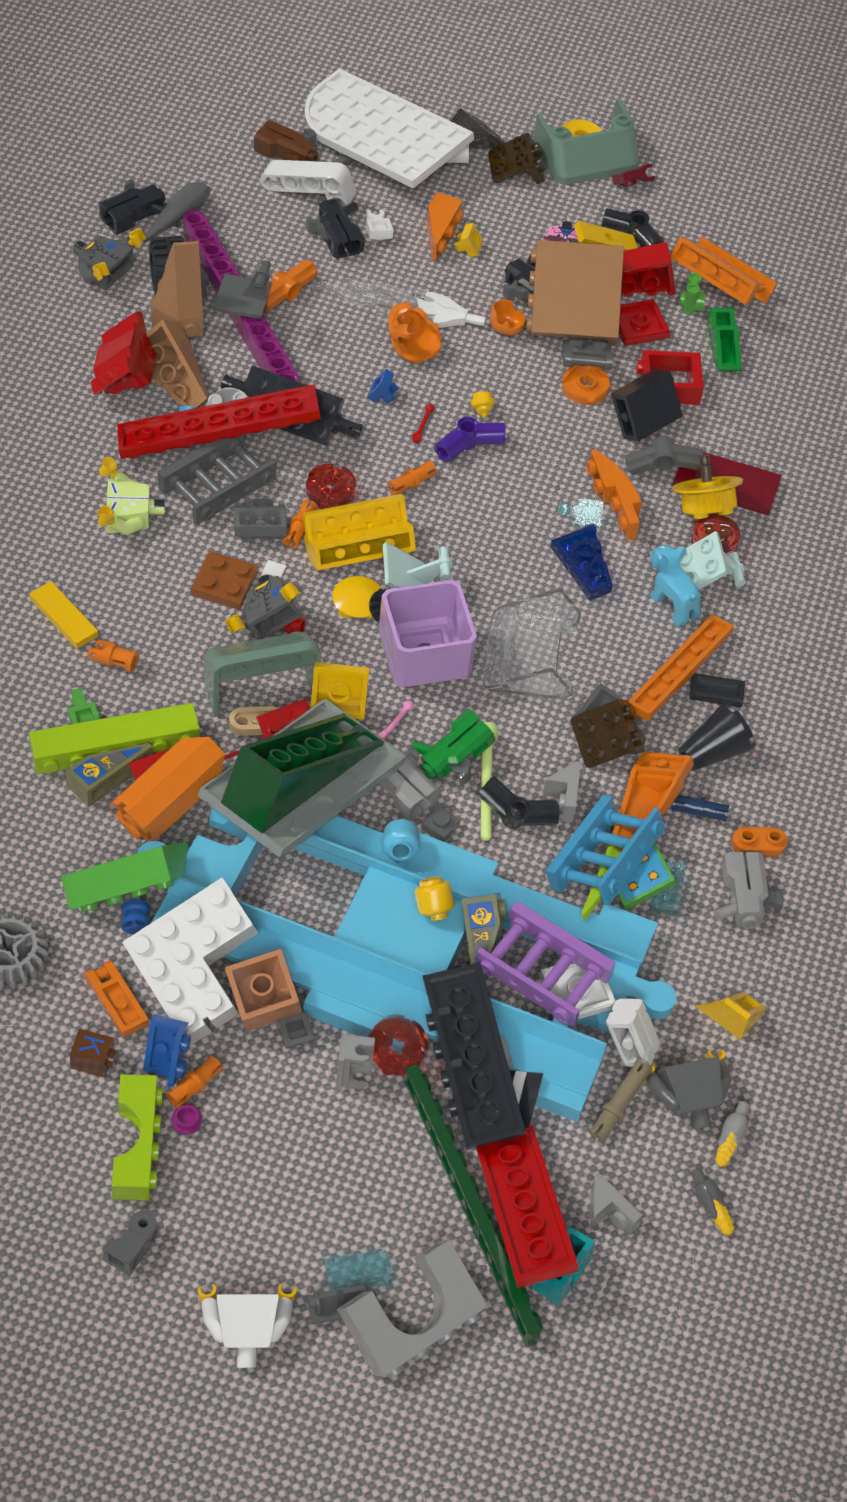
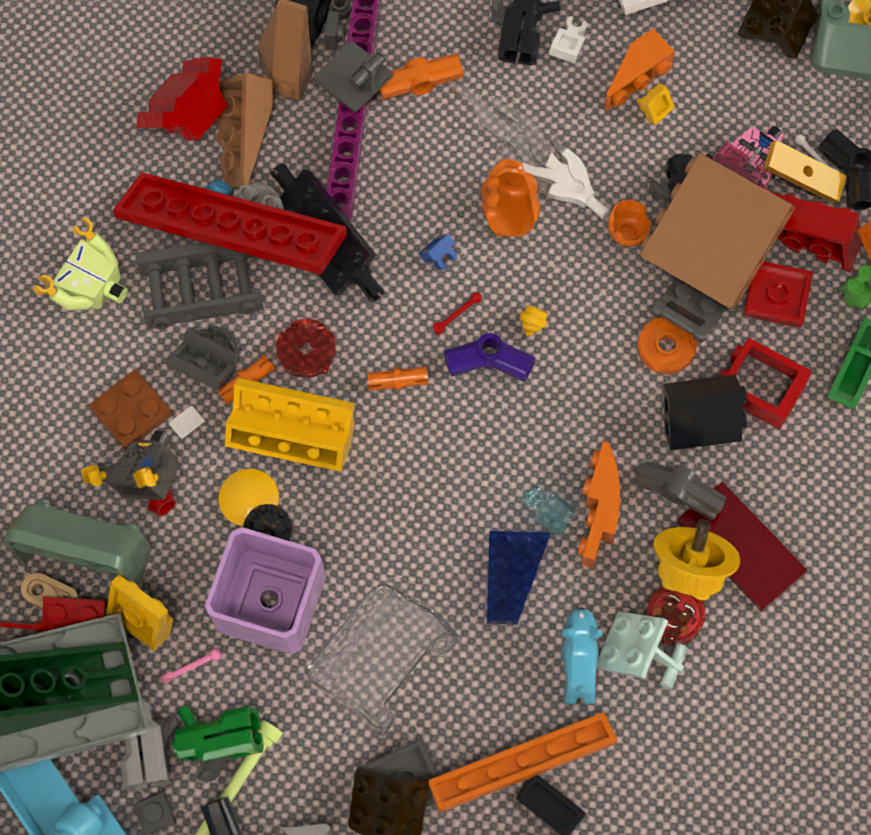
camera: 40 degrees right, 15 degrees up
(406, 570) = (310, 497): light aqua plate -> none

